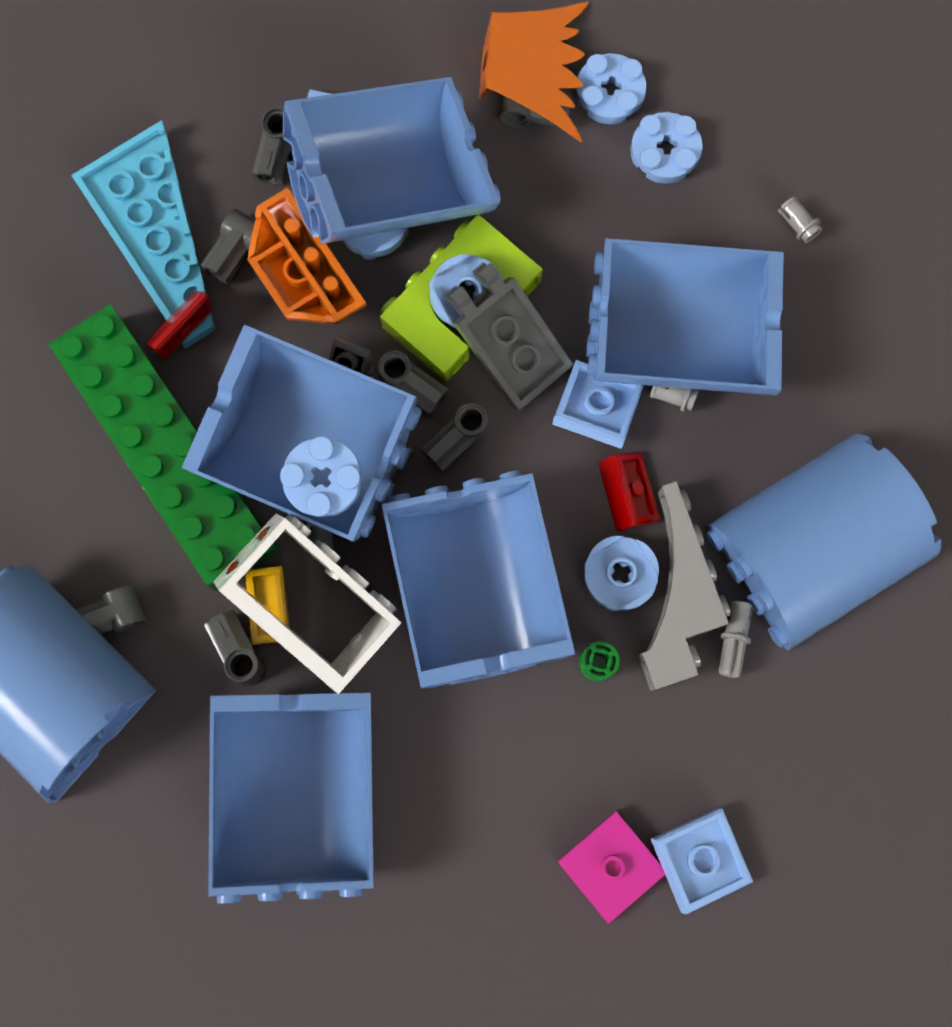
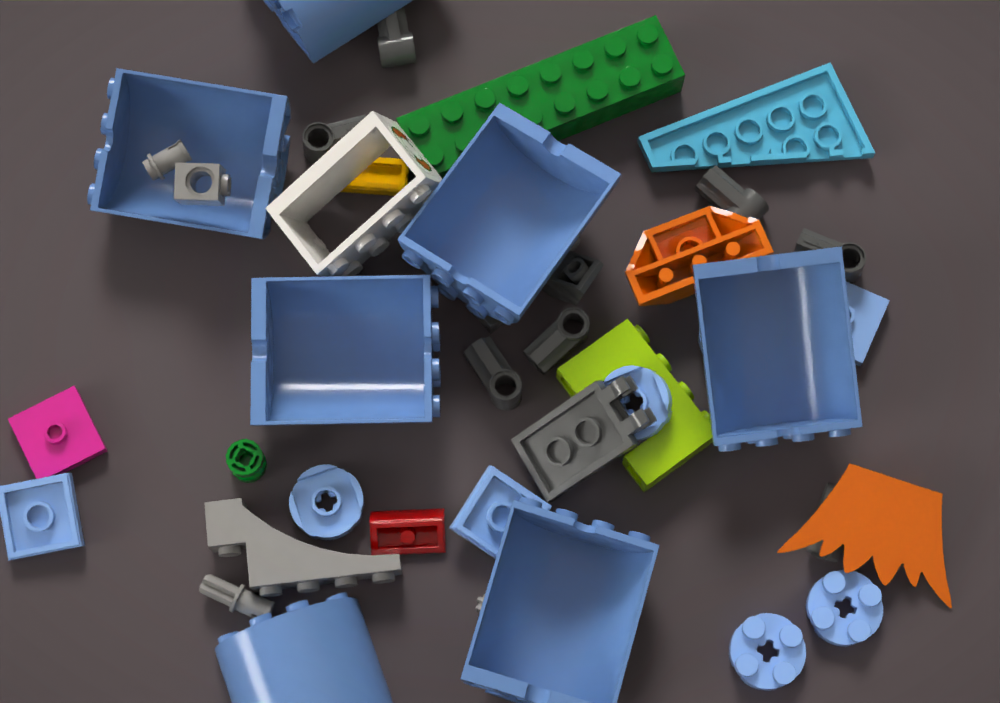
camera: 100 degrees right, 5 degrees down
(180, 324) = (655, 135): red slope -> none
(299, 477) = (455, 239): light blue plate -> none
(306, 812) = (165, 160): none -> light grey pin
(340, 779) = (185, 184): none -> light grey brick

